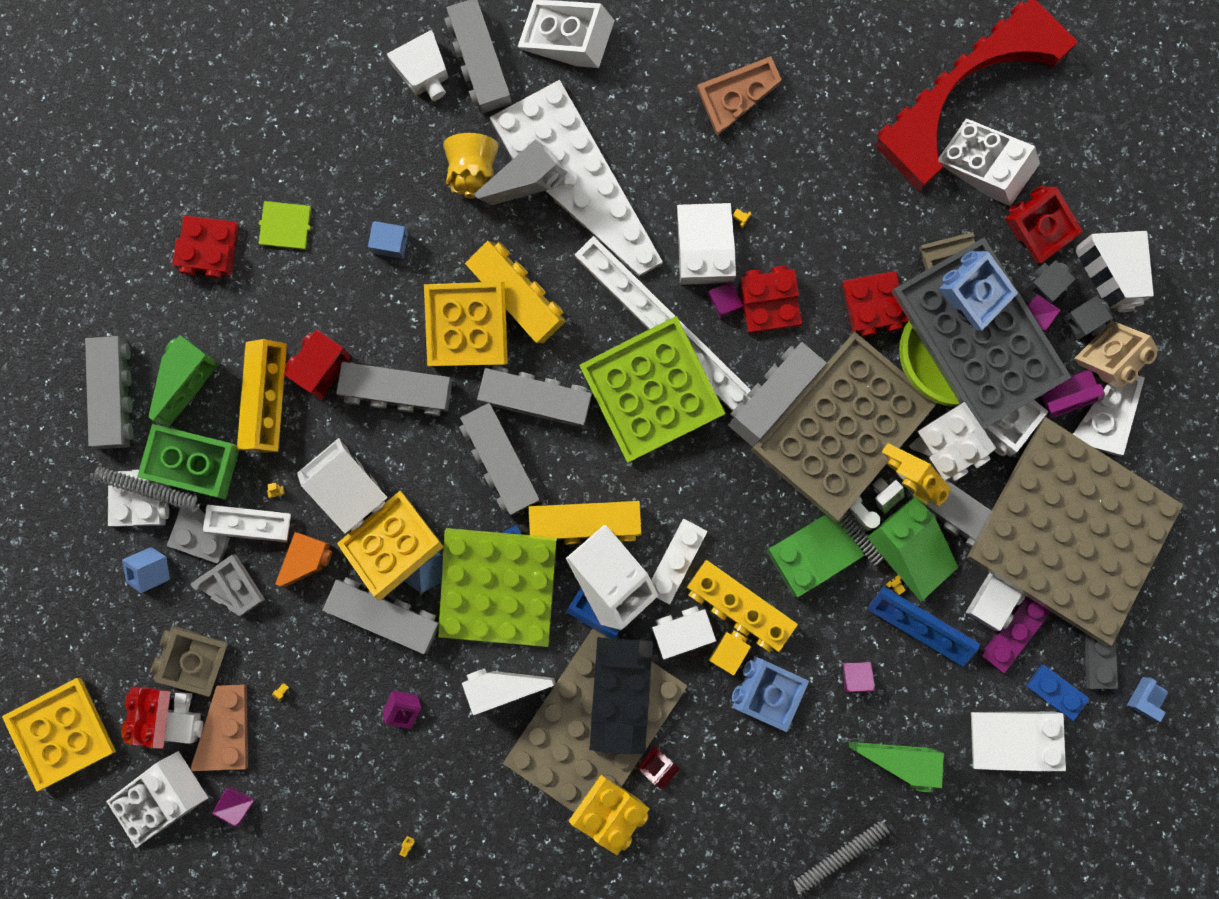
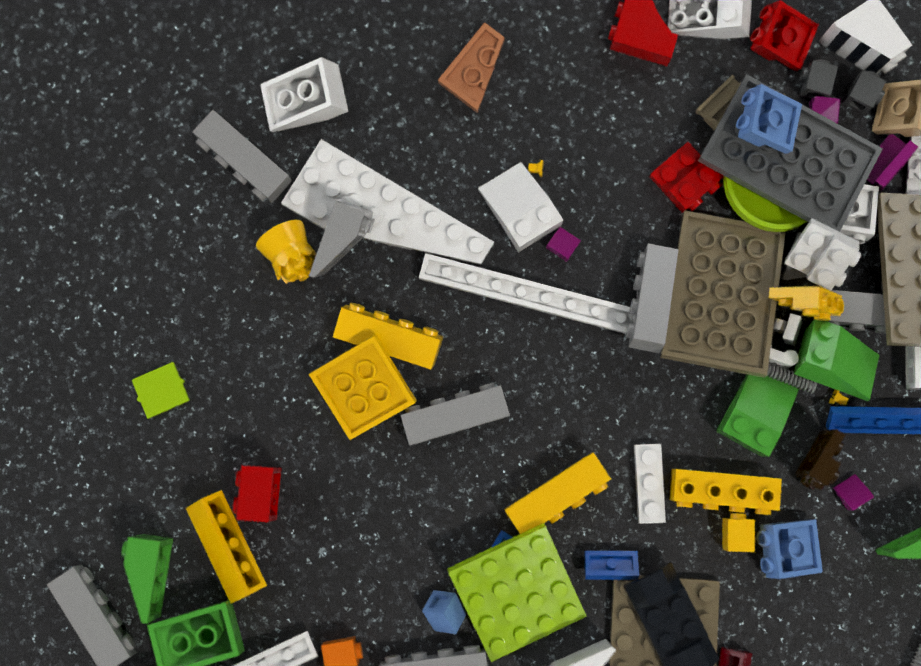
camera: 30 degrees left, 0 degrees up
(205, 247) = (104, 446): red plate -> none
(275, 490) = (282, 618): yellow piece -> none
(342, 486) = (337, 583): white slope -> none
(388, 239) = (255, 353): medium blue panel -> none
(390, 545) = (407, 610): yellow plate -> none
(394, 387) = (332, 474): light grey brick -> none
(421, 65) = (198, 192): white torso -> none
(500, 460) = (457, 484): light grey brick -> none
(611, 579) = (610, 531): white slope -> none
(652, 389) = (548, 353): lime plate -> none
(683, 633) = (691, 539): white brick -> none
(770, 300) = (600, 223): red plate -> none
(840, 633) = (818, 466): none -> dark brown plate

